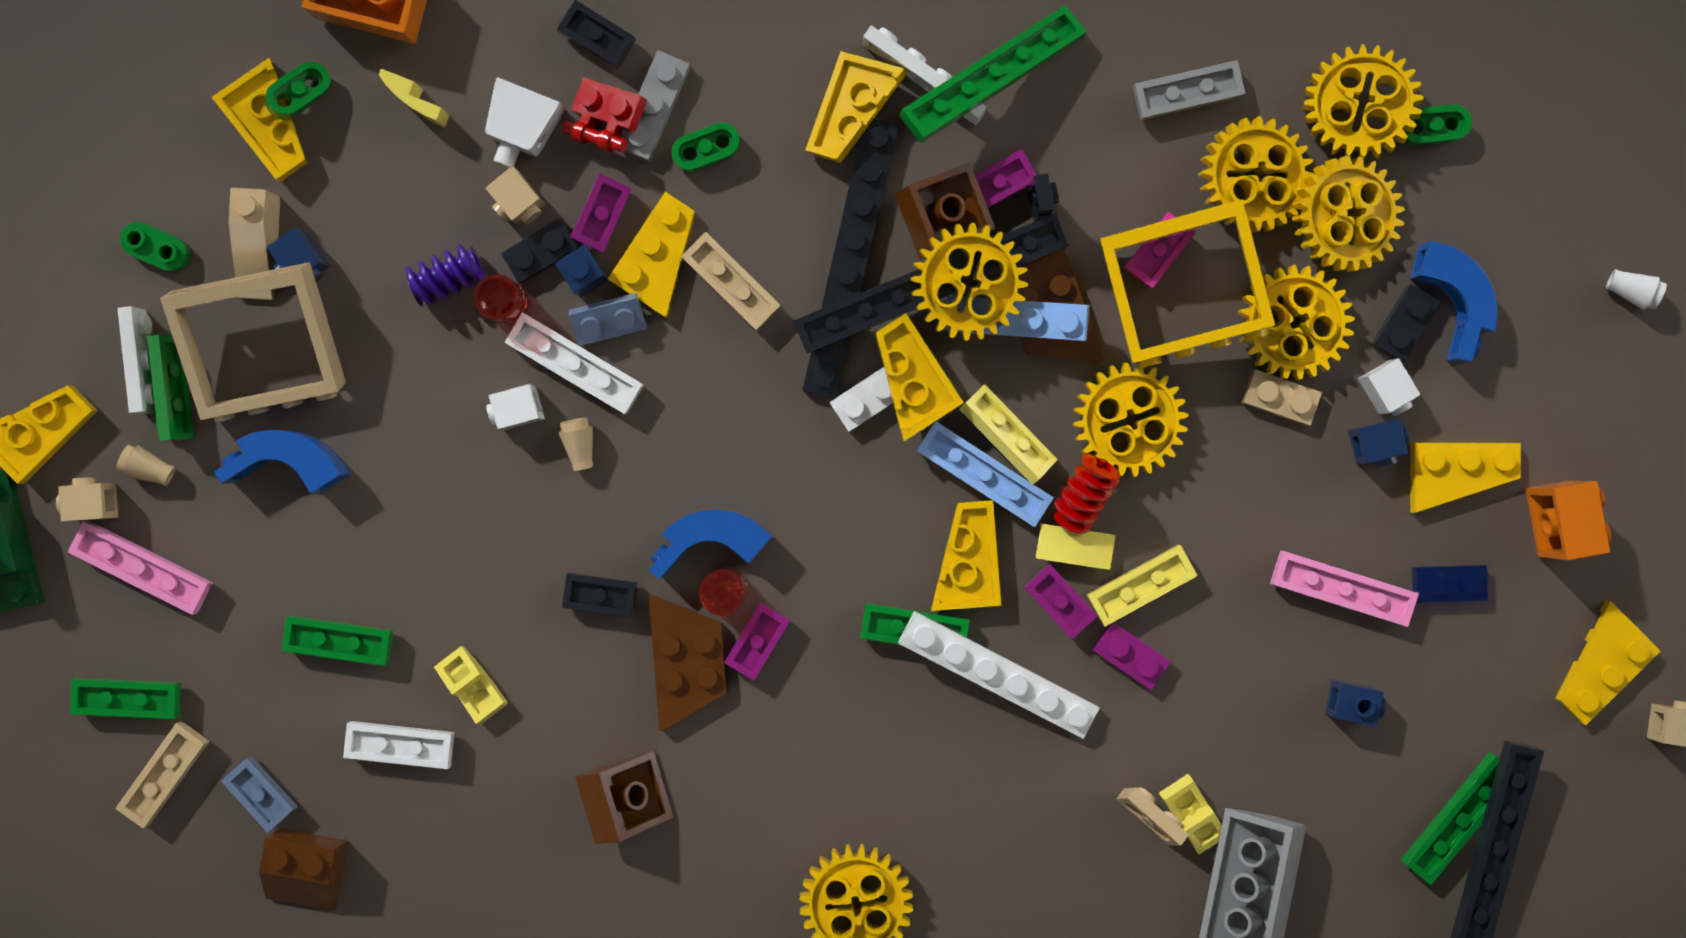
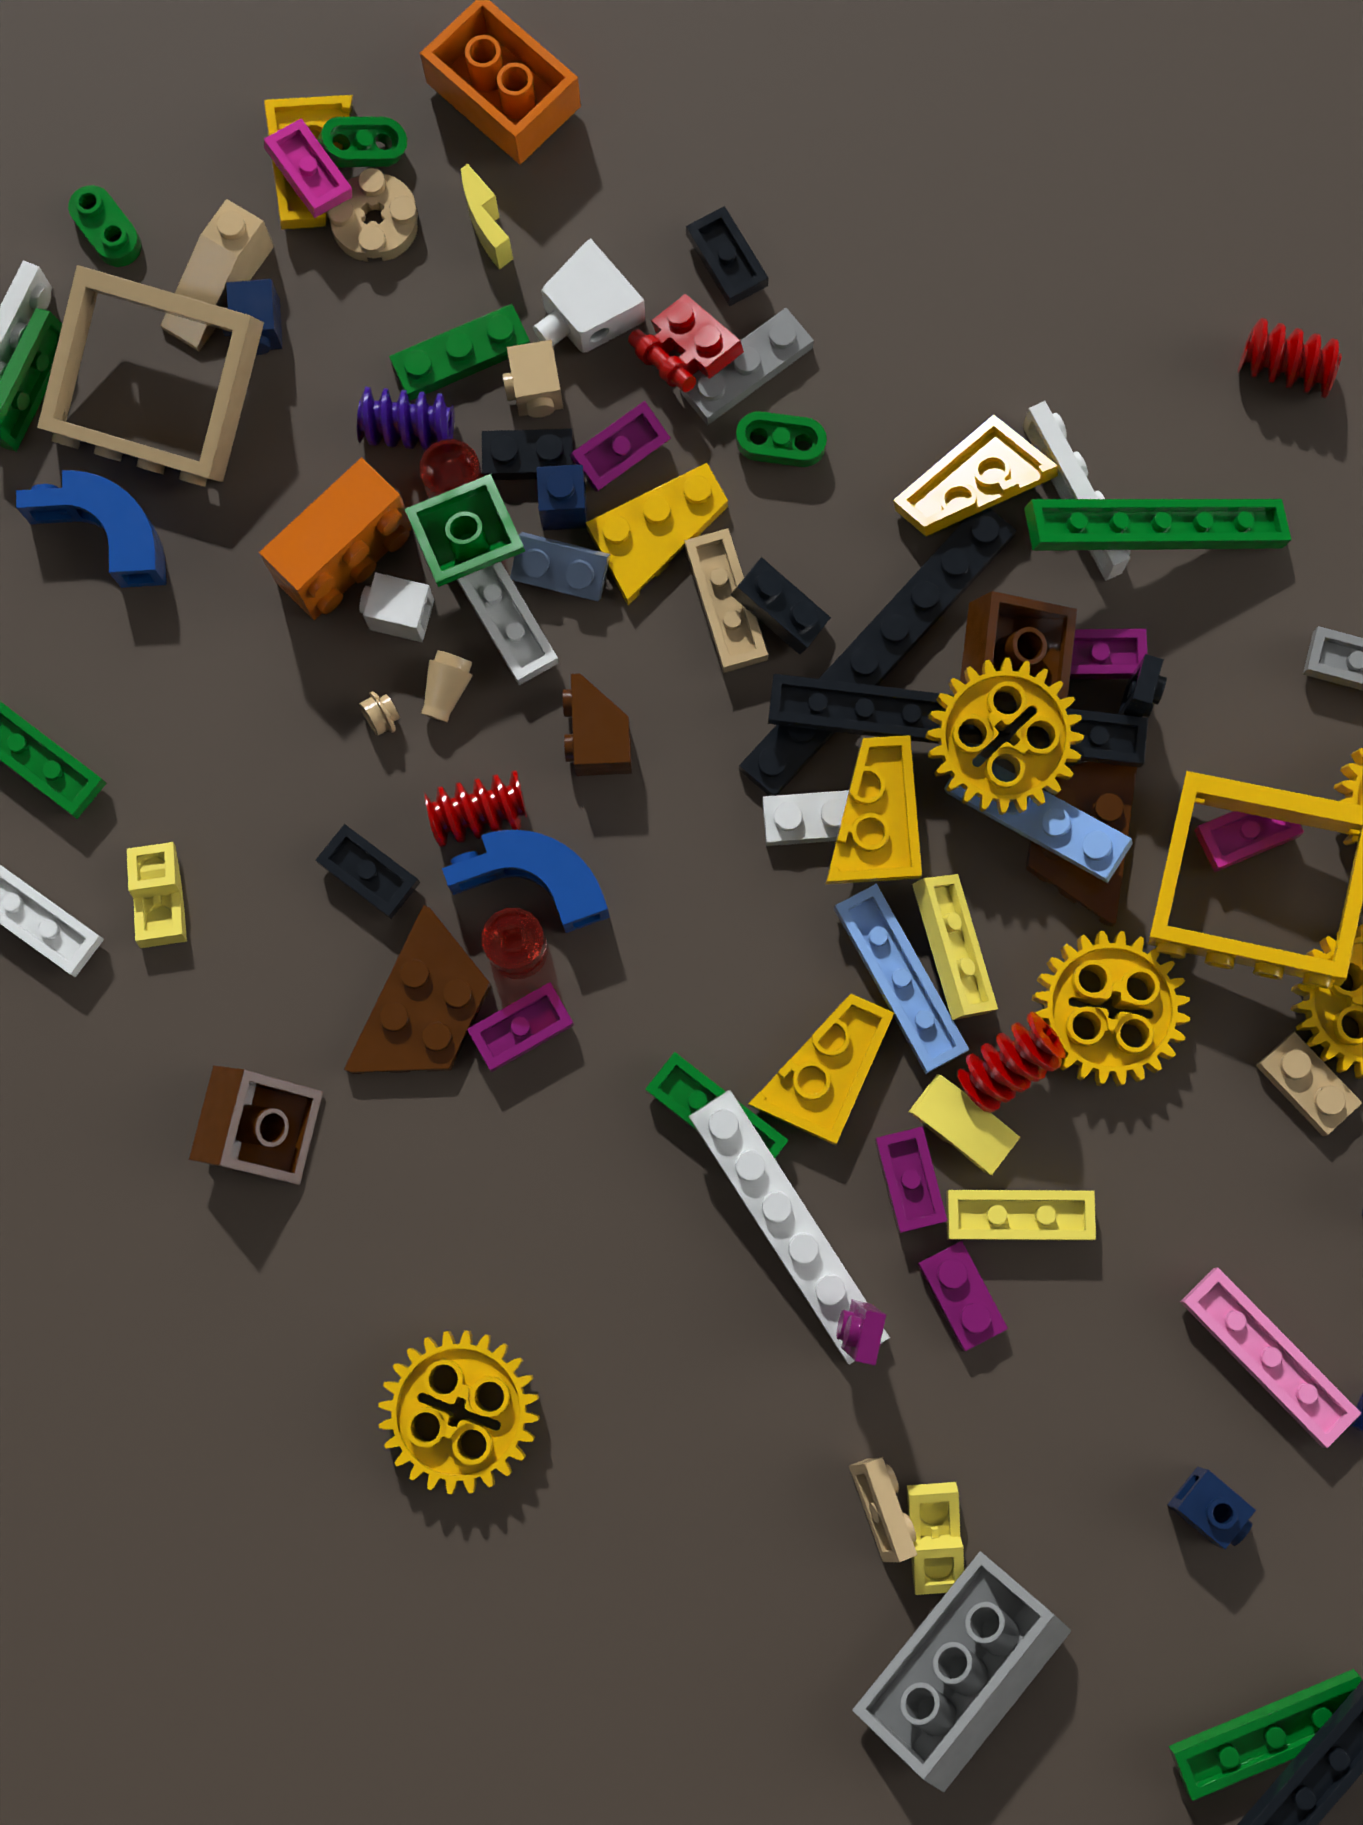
camera: 30 degrees right, 10 degrees down
(272, 132) = (307, 168): none -> dark pink plate
(325, 121) = (398, 209): none -> tan plate
(450, 387) = (338, 539): none -> orange brick
(453, 203) = (458, 352): none -> green plate
(533, 337) = (464, 530): none -> green slope
(546, 485) = (379, 713): none -> tan plate
(647, 516) = (476, 809): none -> red piece
(698, 418) = (600, 731): none -> reddish brown slope
(770, 266) = (780, 606): none -> black plate
(1083, 722) = (861, 1331): none -> magenta plate

